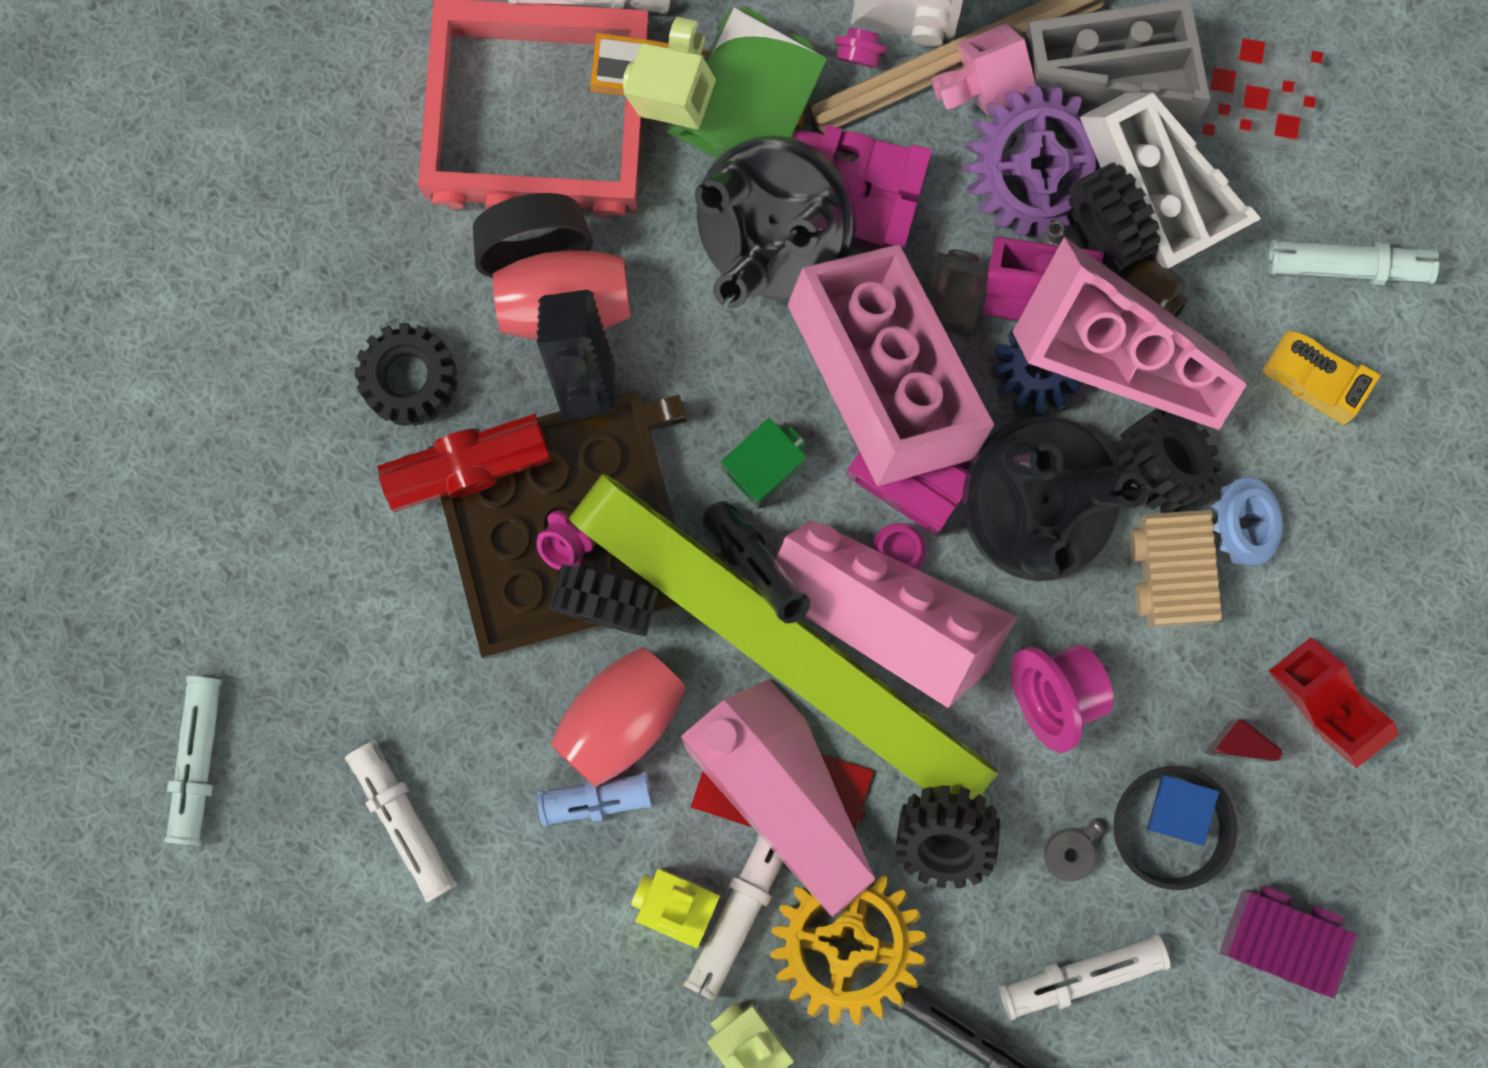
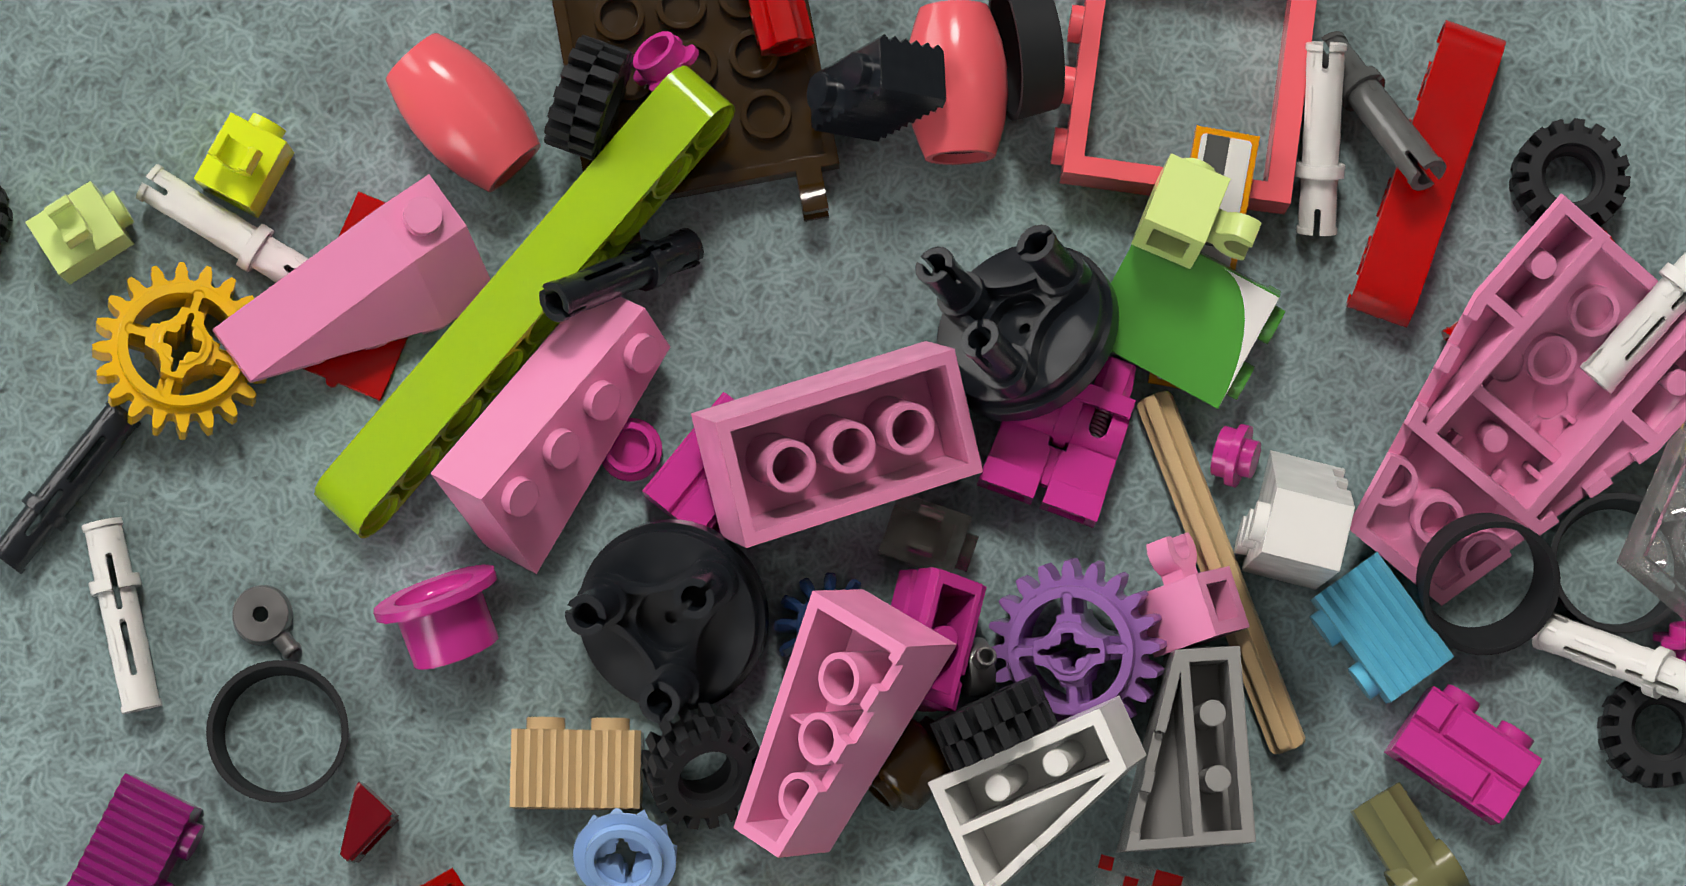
camera: 90 degrees right, 0 degrees up
(594, 802) = (372, 64): light blue pin -> none
(765, 461) = (744, 302): green brick -> none
(952, 816) = (290, 468): black tyre -> none
(1182, 810) = (294, 738): blue tile -> none

